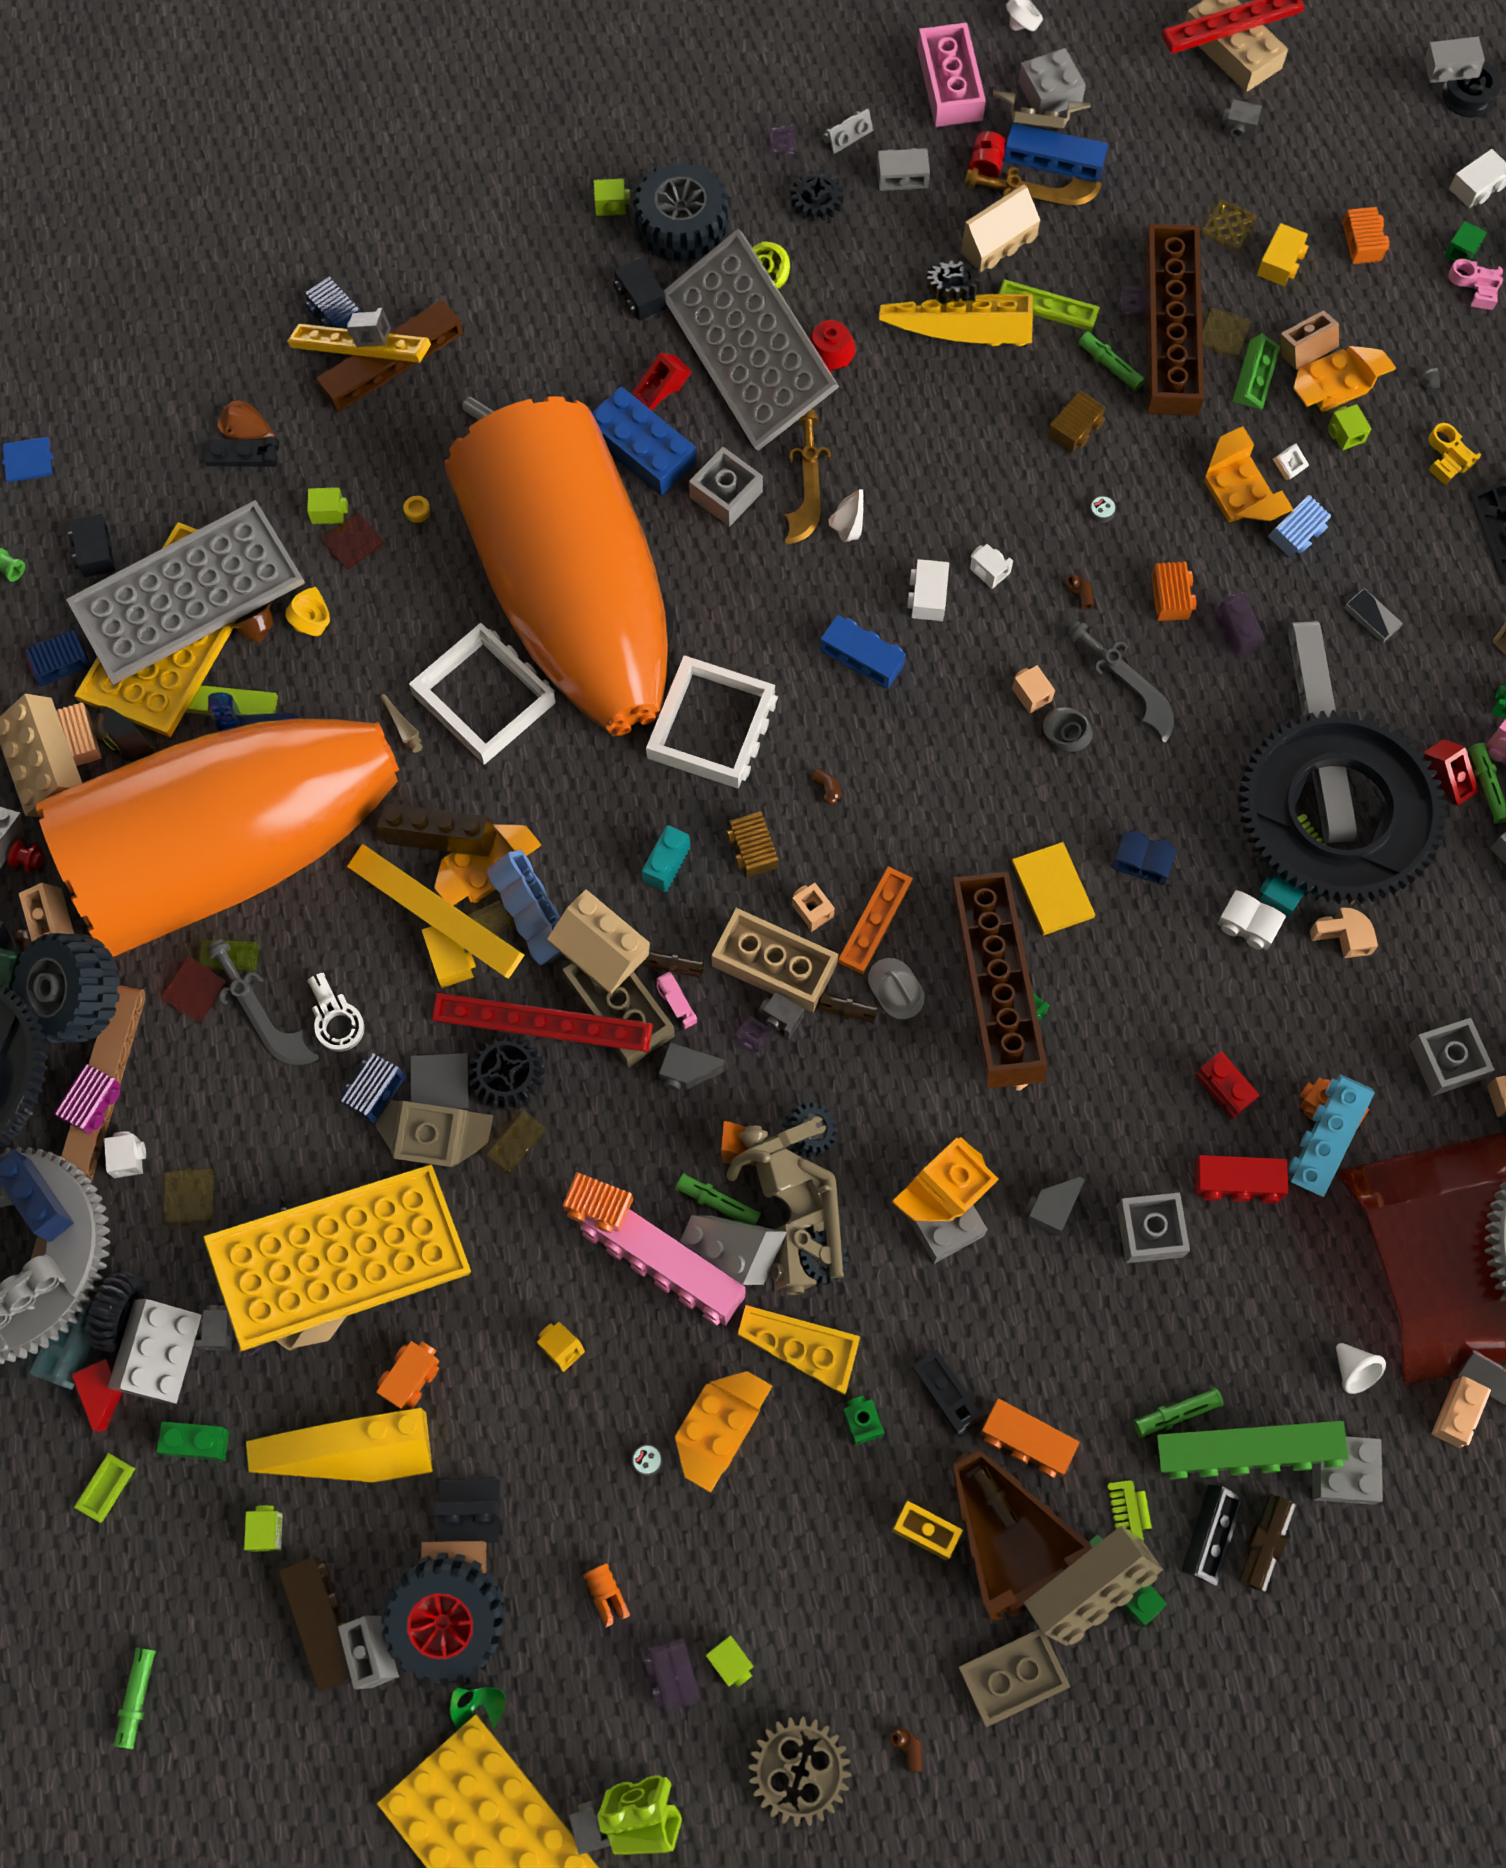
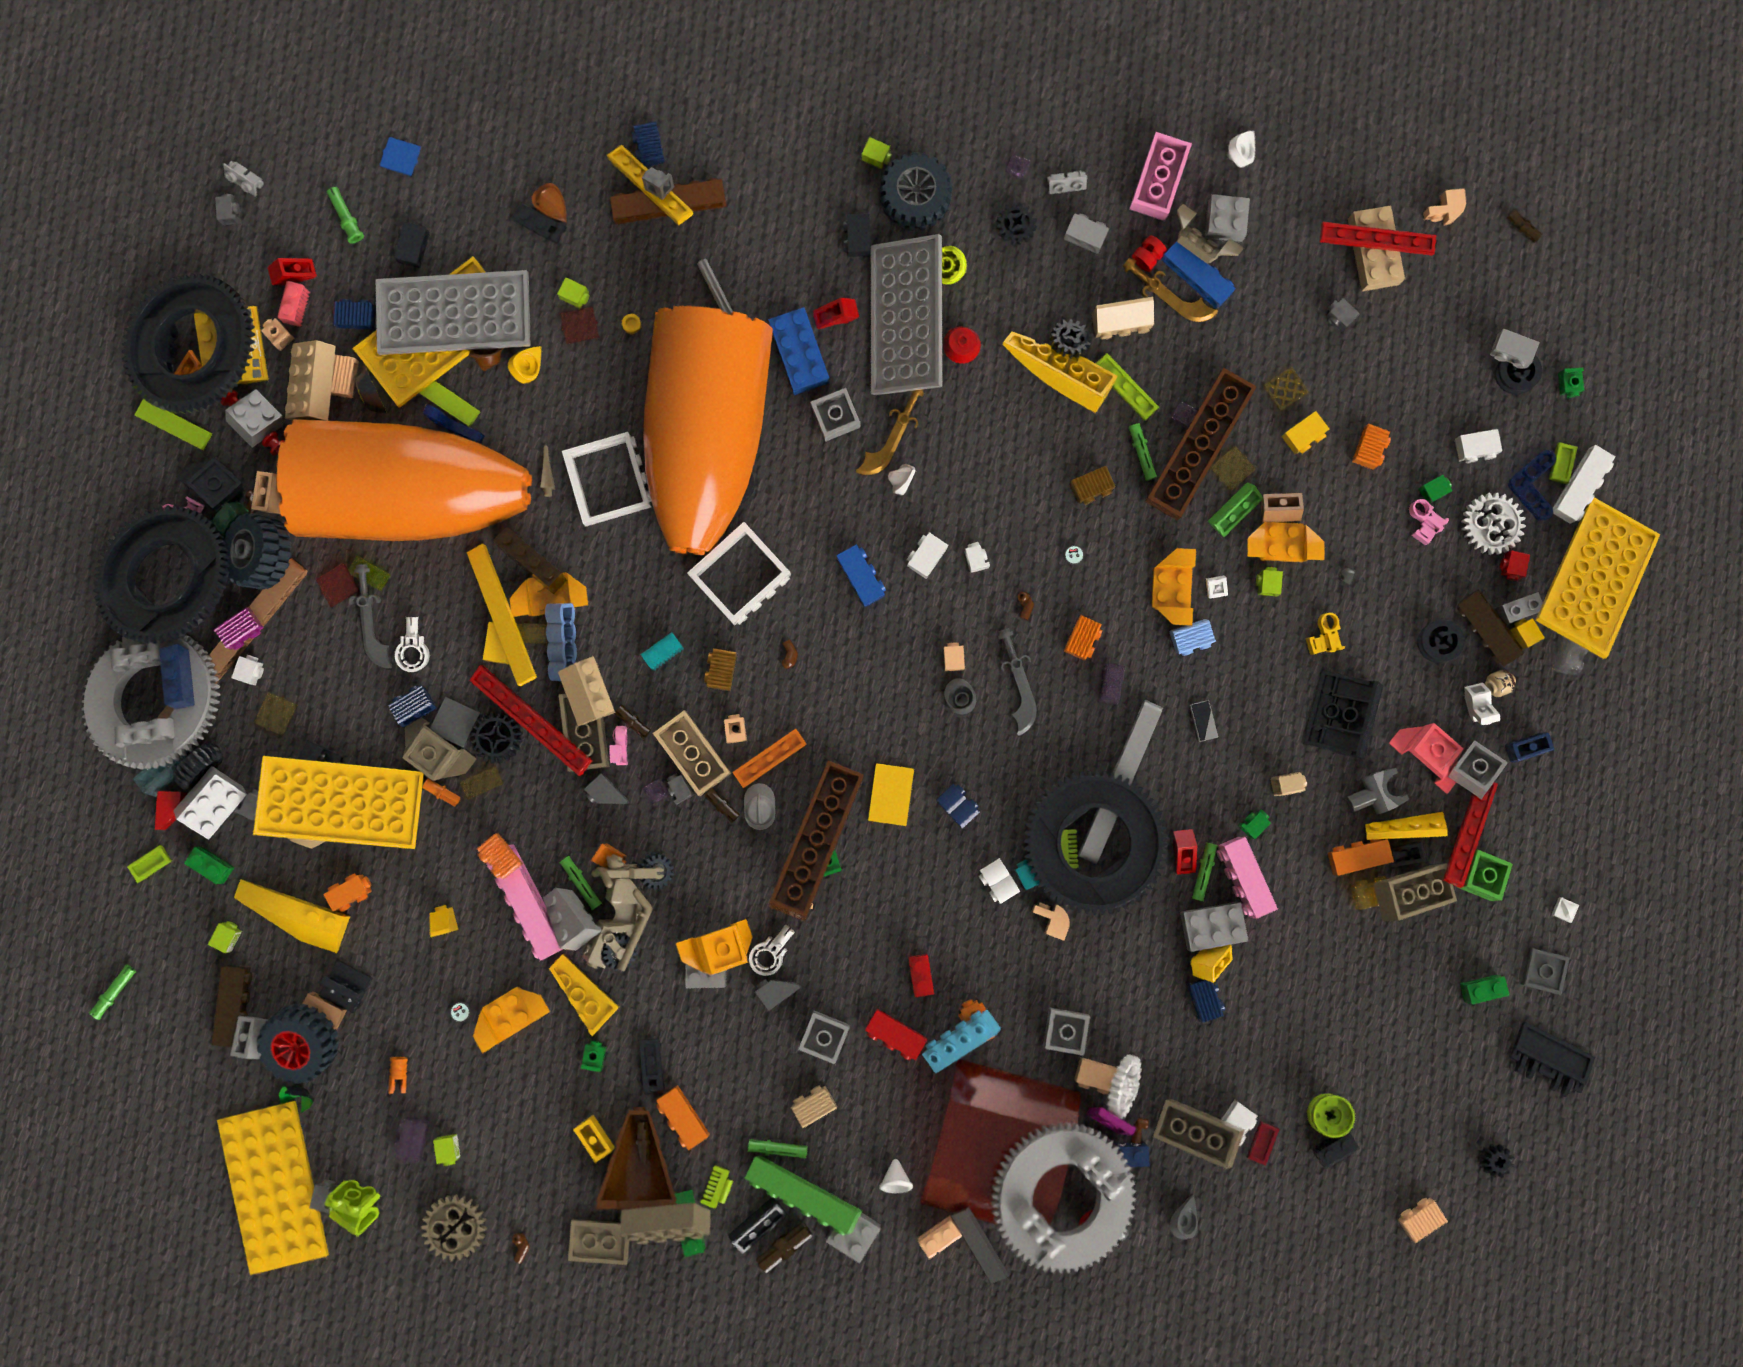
camera: 25 degrees right, 15 degrees up
(468, 1180) = (441, 792): none -> orange axle
(1021, 1138) = (779, 941): none -> white pin
(1192, 1328) = (813, 1106): none -> tan brick

